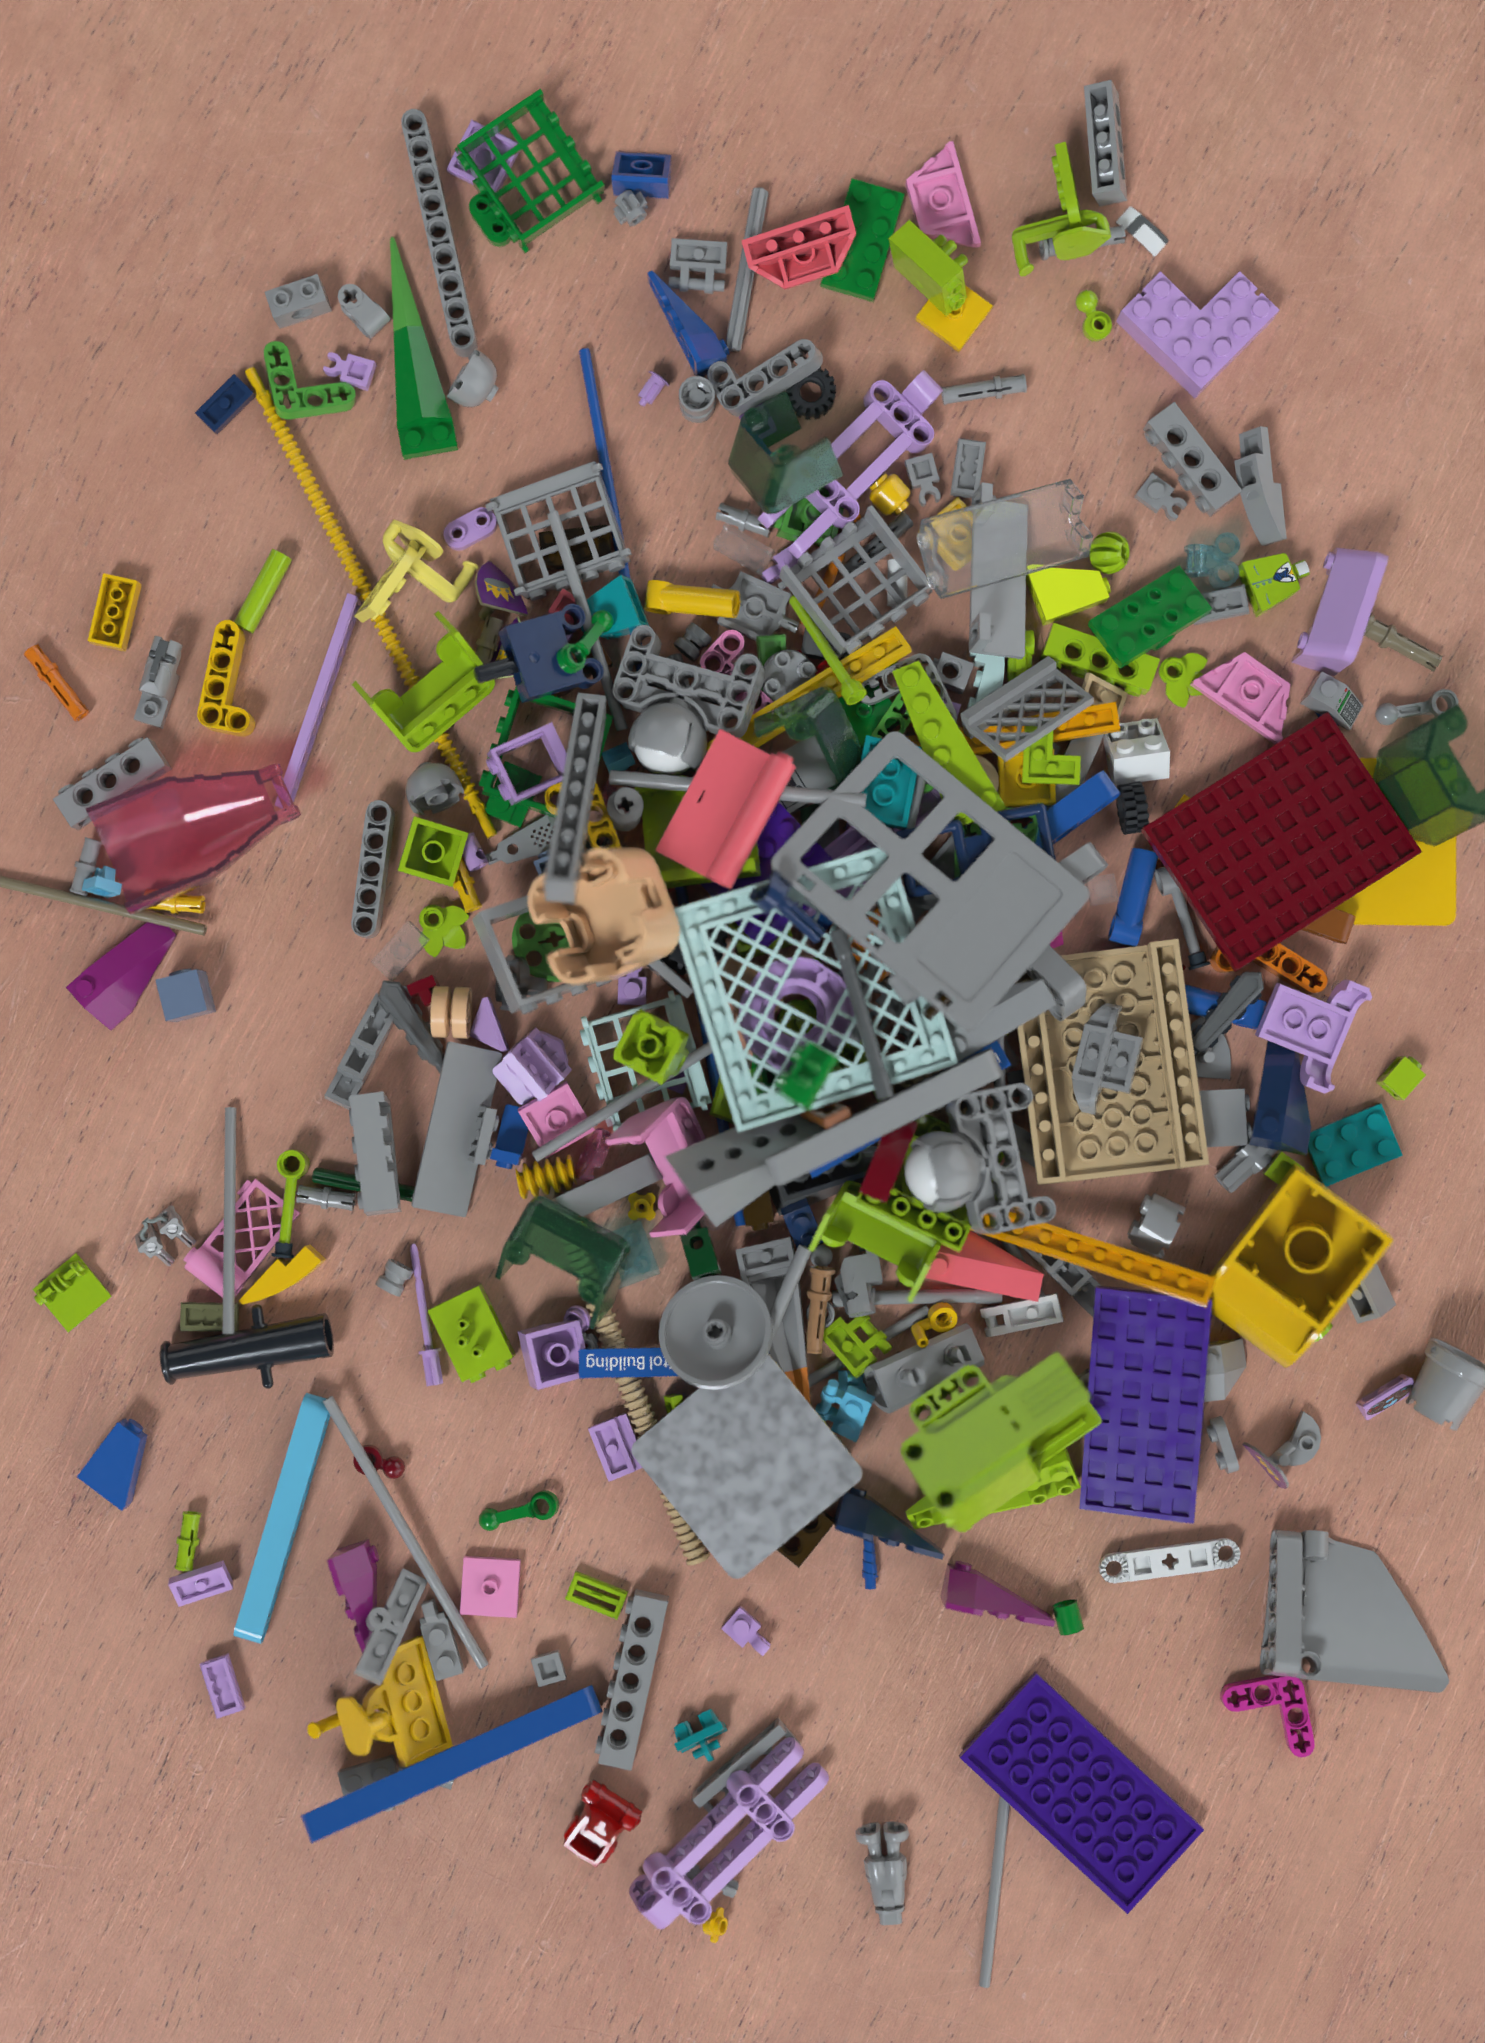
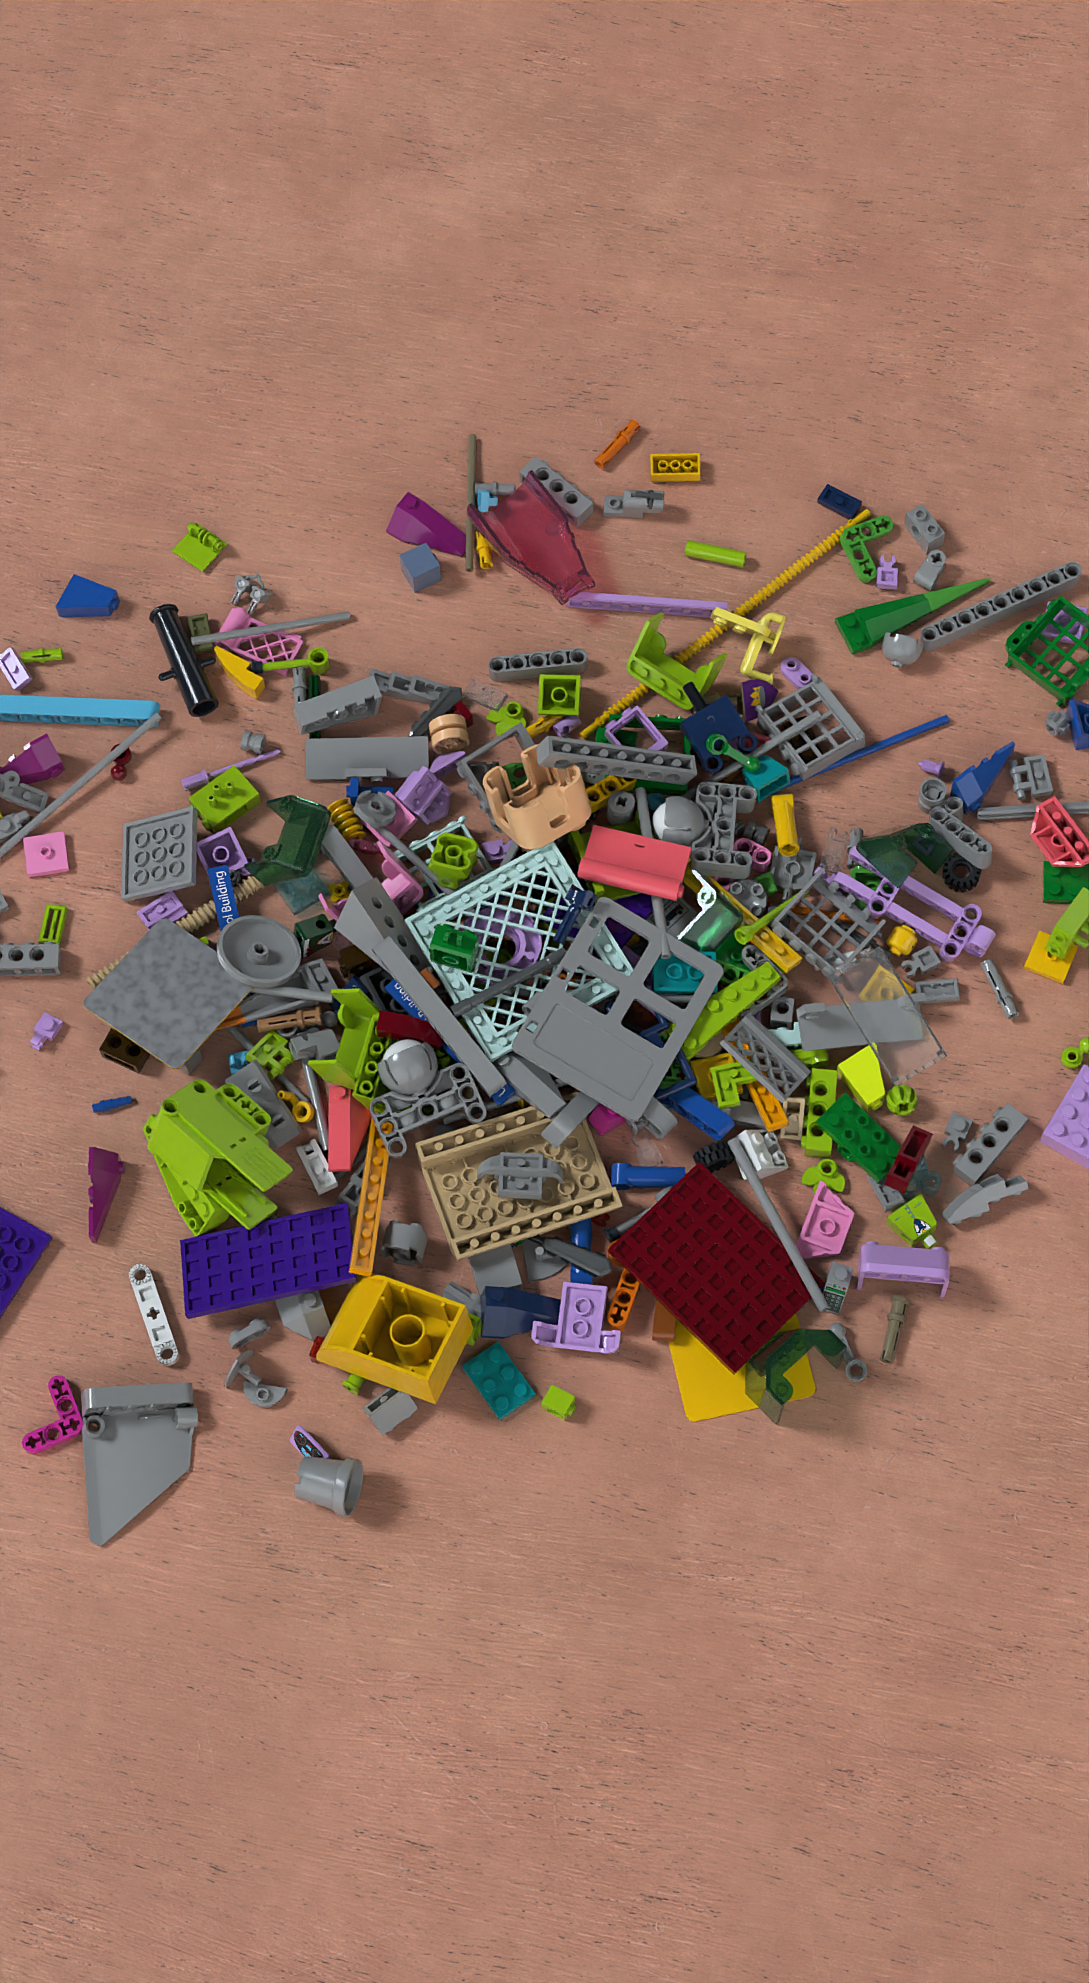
camera: 80 degrees right, 20 degrees down
(227, 676) = (677, 544): yellow beam -> none
(433, 788) = (605, 688): light grey cylinder -> none
(491, 1519) = (94, 845): green piece -> none
(537, 1436) = (159, 854): none -> light grey plate
(556, 1145) = (375, 818): none -> light grey plate
(853, 1409) = (218, 1060): medium azure plate -> none
(865, 1517) = (146, 1087): dark blue wedge -> none
(1068, 1617) = (97, 1250): green beam -> none
(1198, 564) = (908, 1159): none -> dark red slope
(1245, 750) = (778, 1225): none -> light grey piece
(1264, 1363) = (316, 1345): none -> clear red tile

